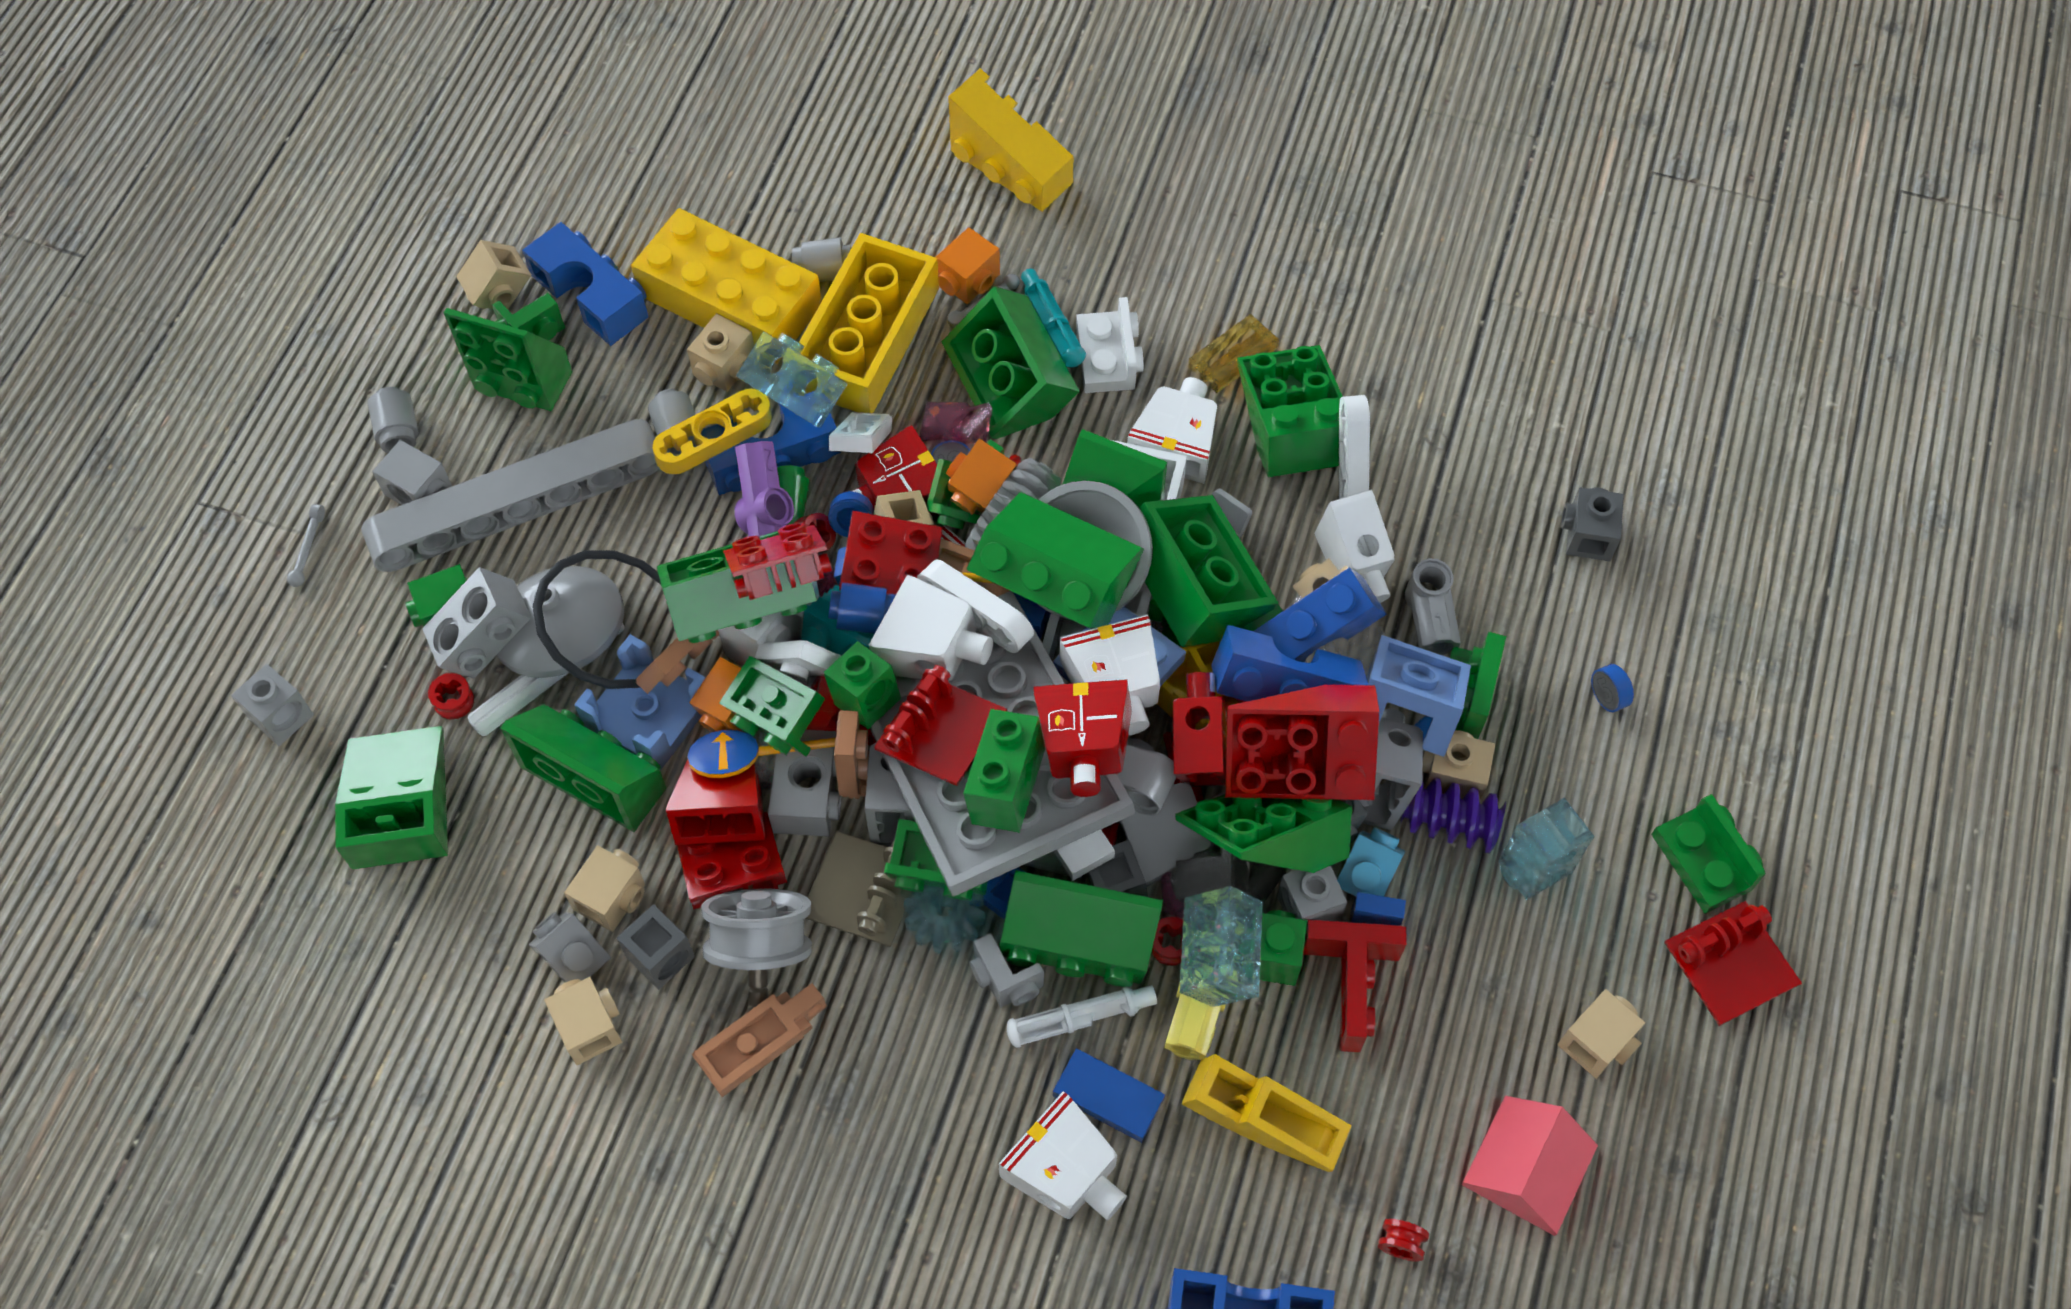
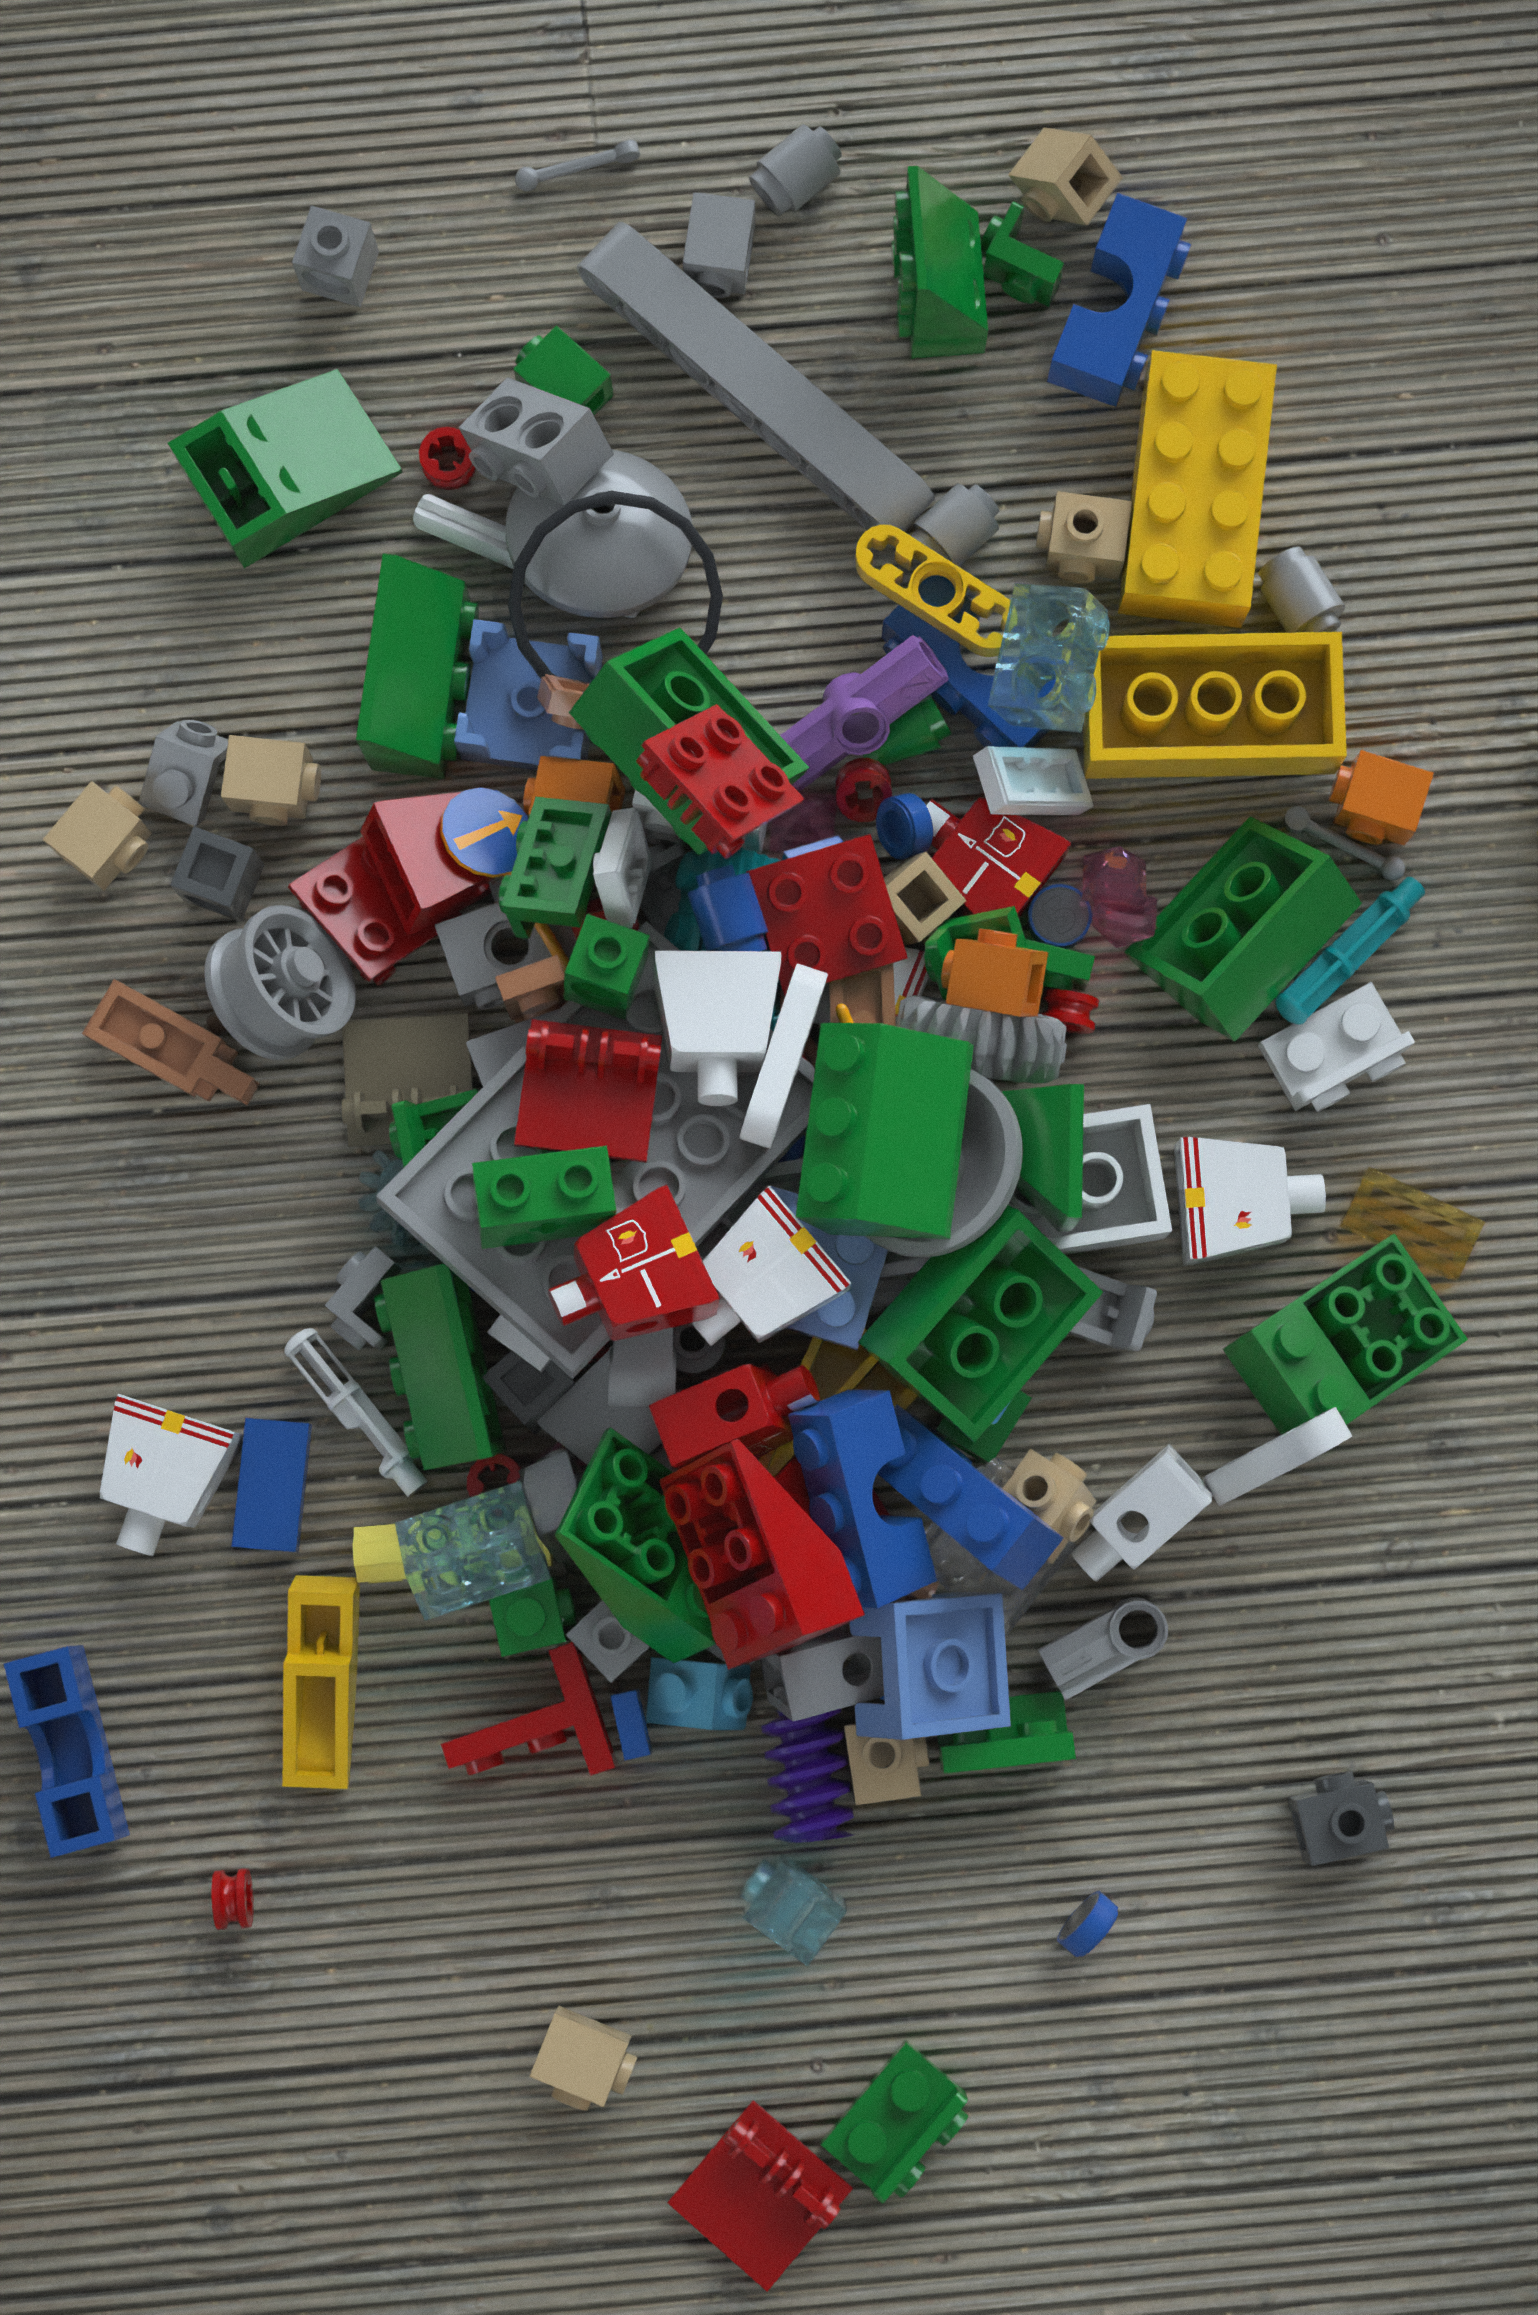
camera: 70 degrees right, 20 degrees up
(1532, 1161) = (392, 2020): coral slope -> none

